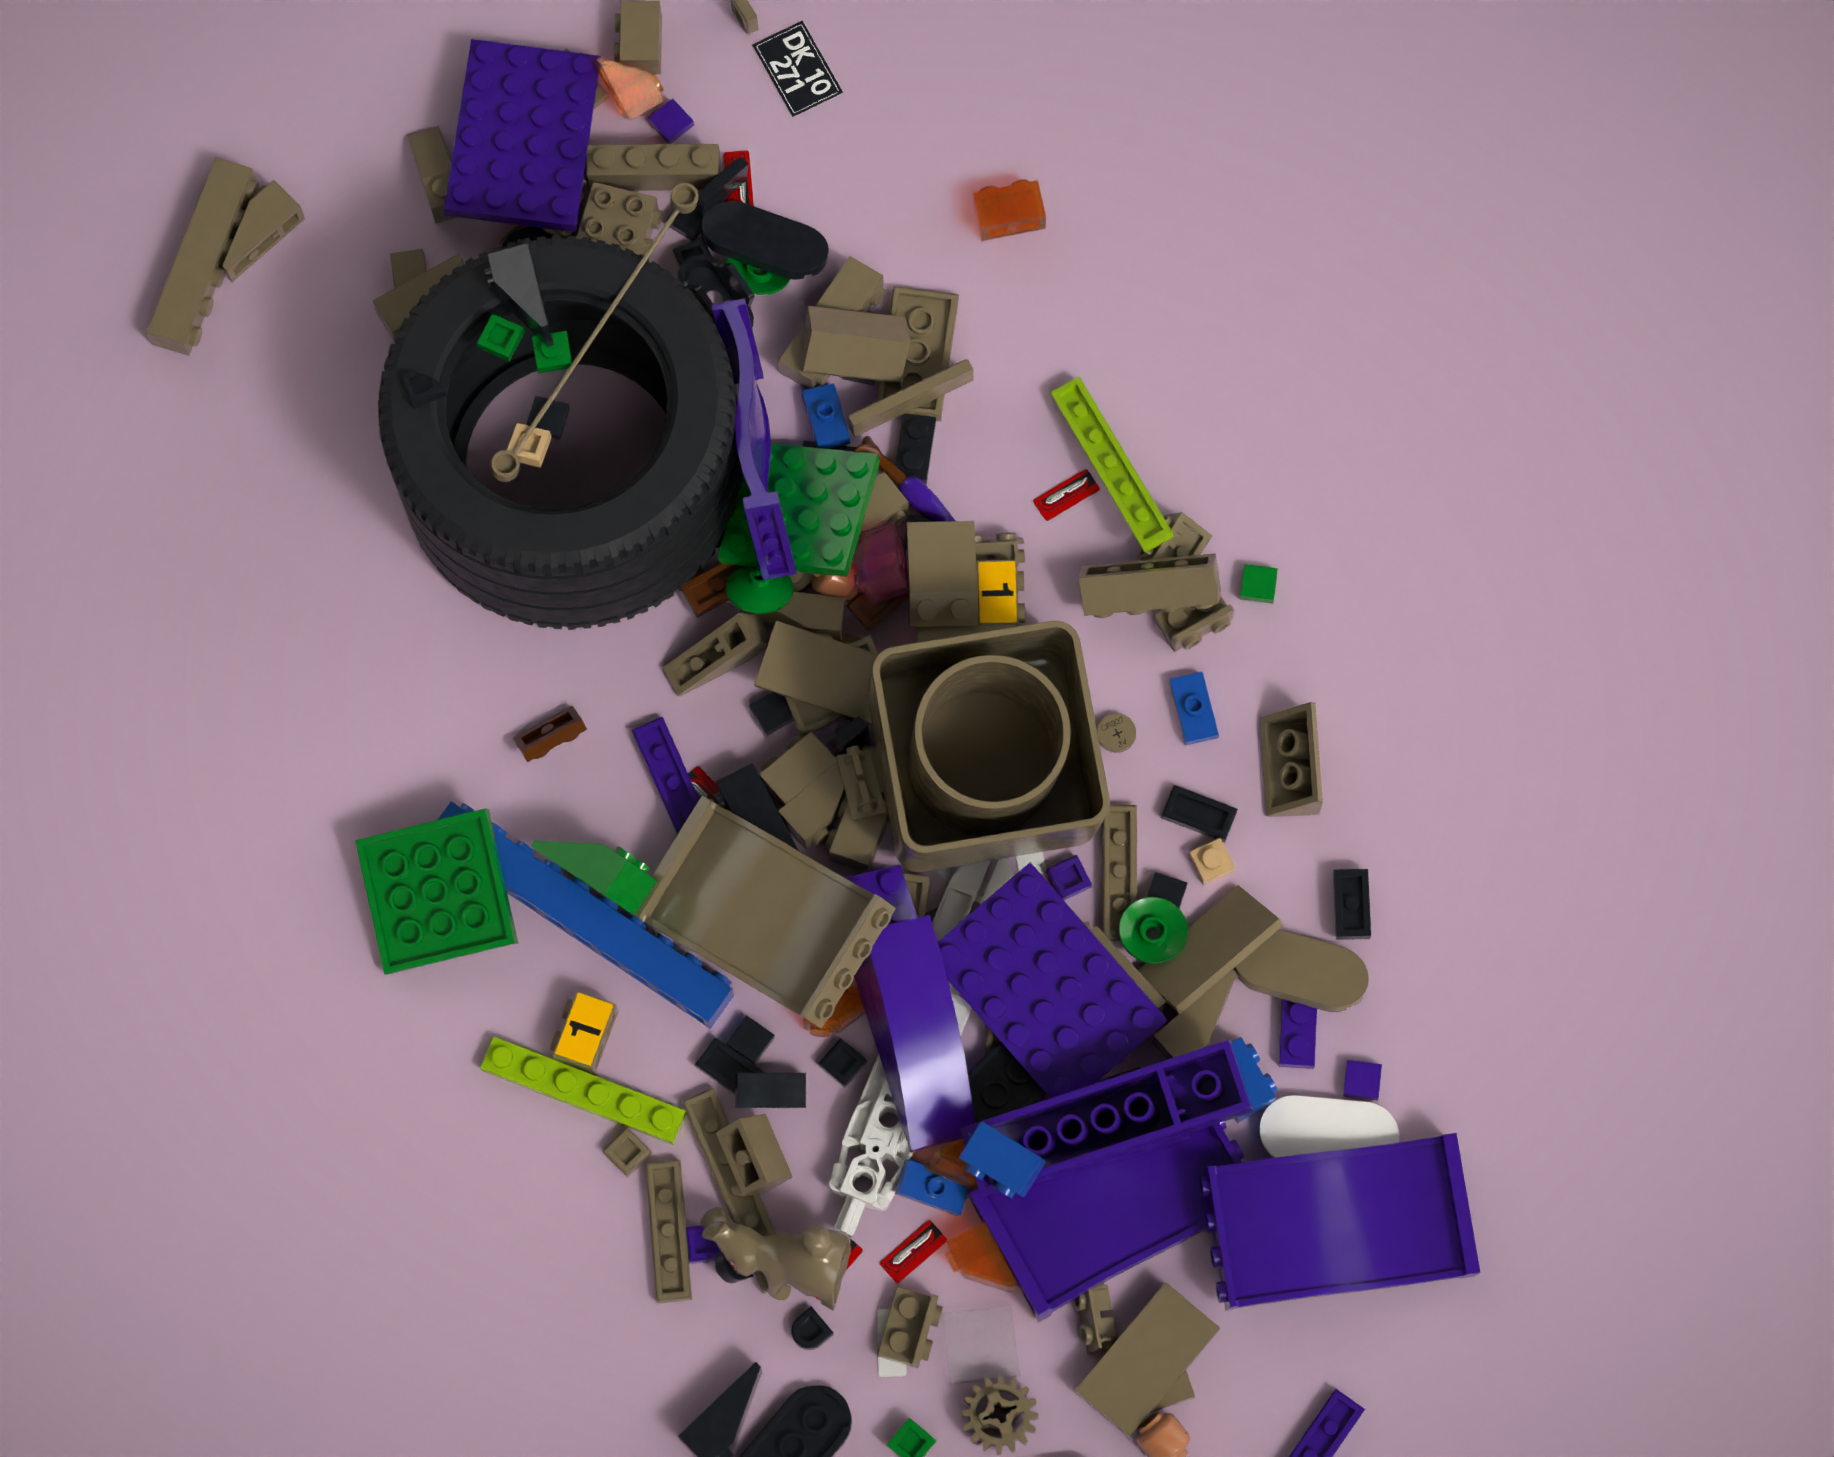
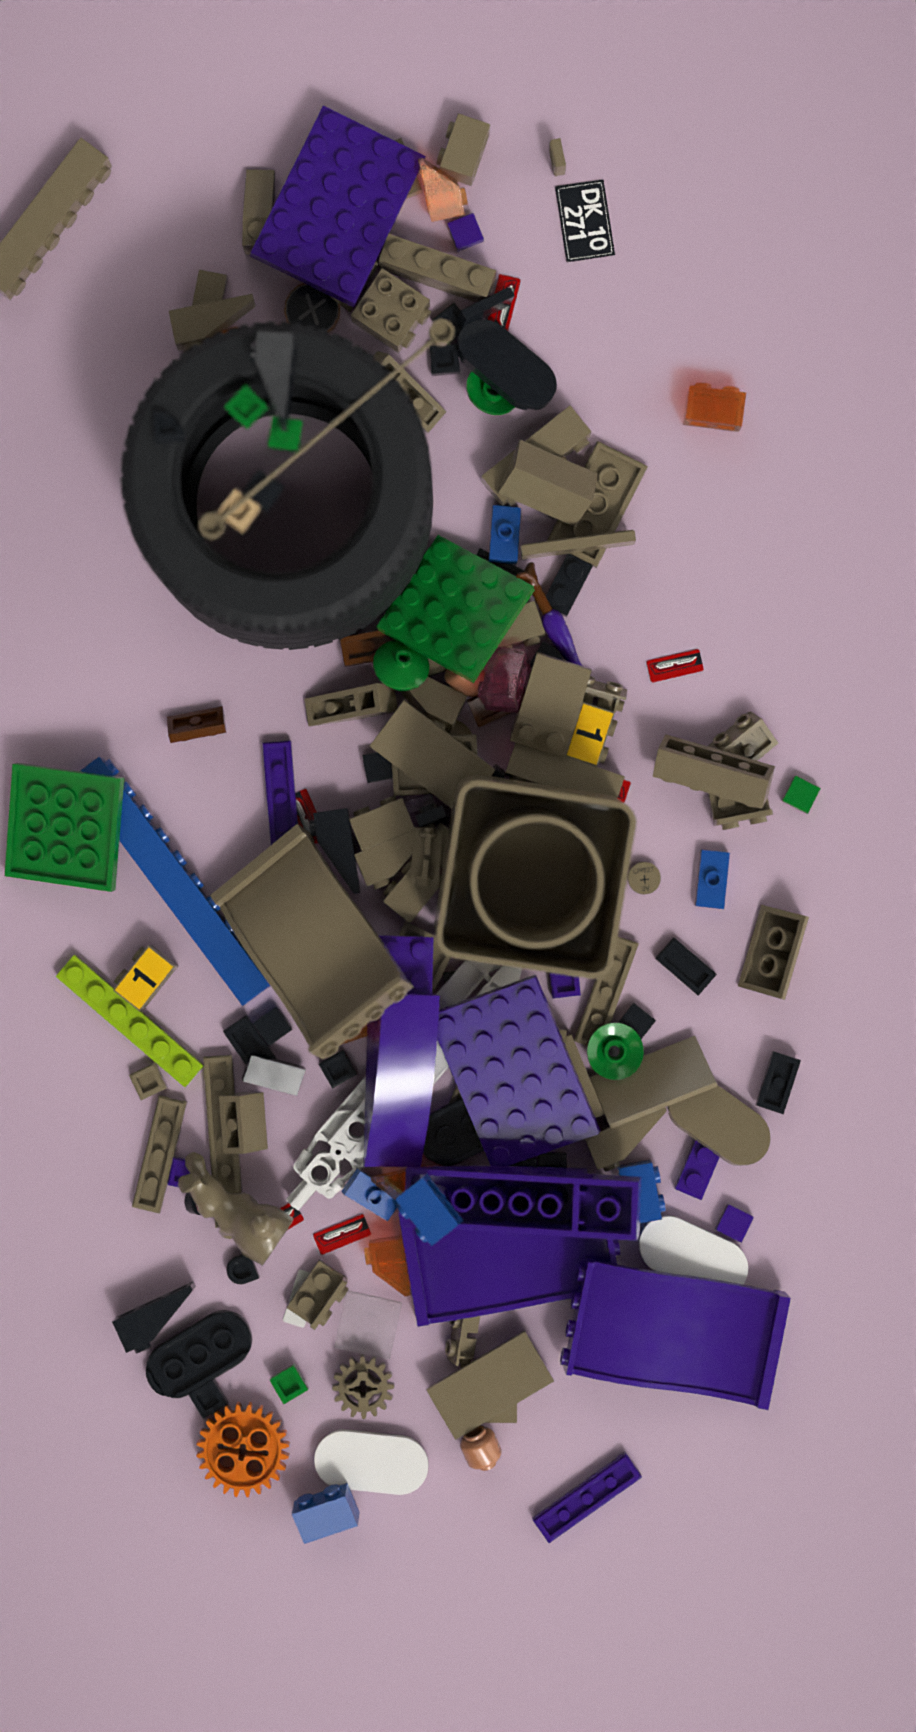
camera: 15 degrees right, 15 degrees up
(264, 223) = (103, 208): dark tan slope -> none
(610, 872) = (200, 867): green slope -> none
(706, 274) = (460, 422): black piece -> none
(754, 441) = (434, 546): dark purple panel -> none
(1112, 464) = (719, 657): lime plate -> none
(1212, 861) = (681, 1008): tan plate -> none

